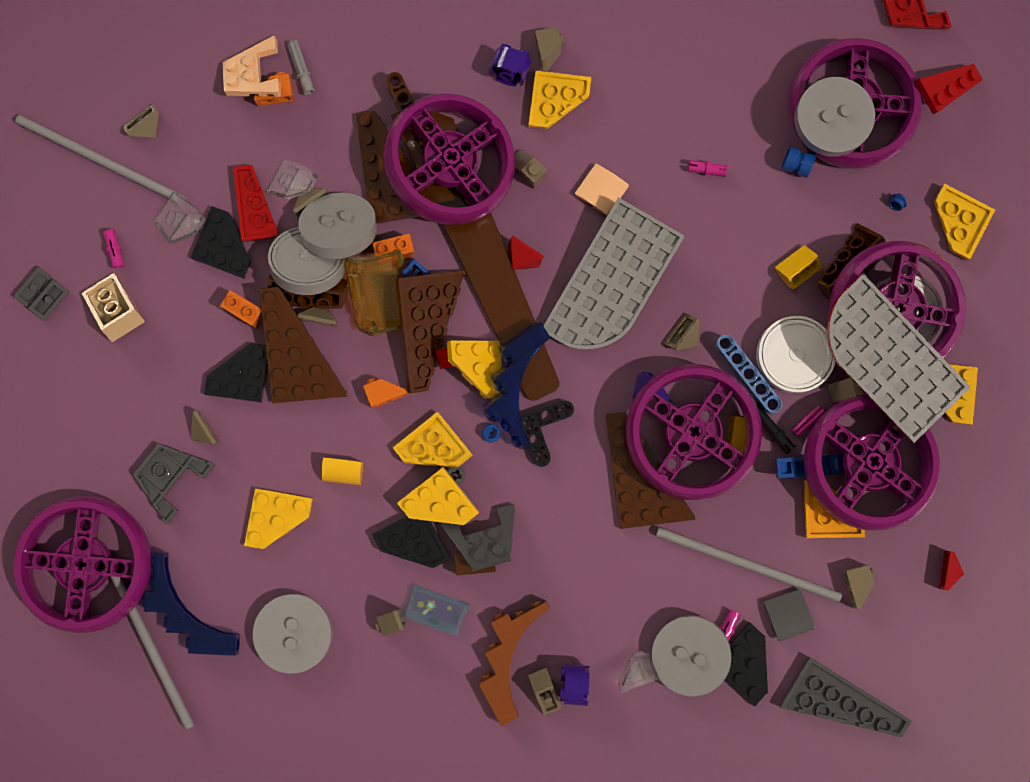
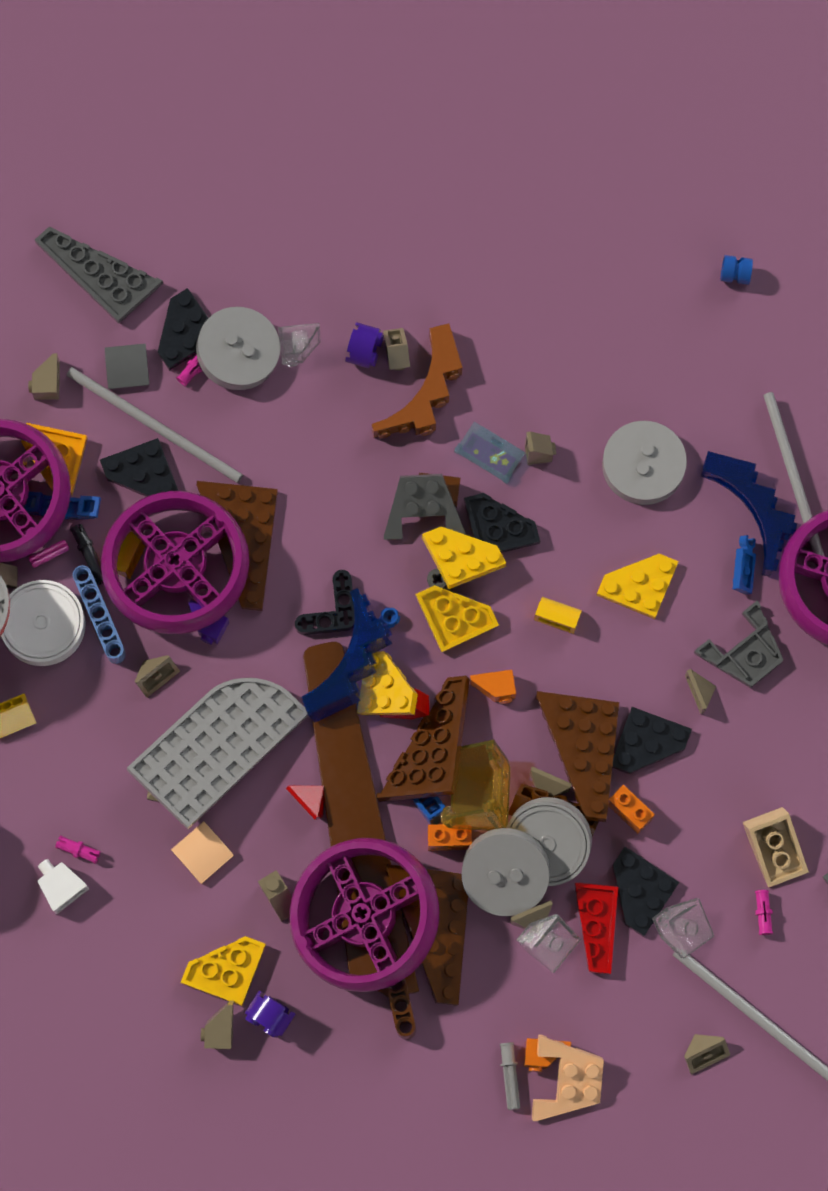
camera: 170 degrees left, 10 degrees down
(183, 555) = (744, 566): none -> blue plate
(714, 133) = (60, 885): none -> white torso
(746, 518) = (140, 469): none -> black plate

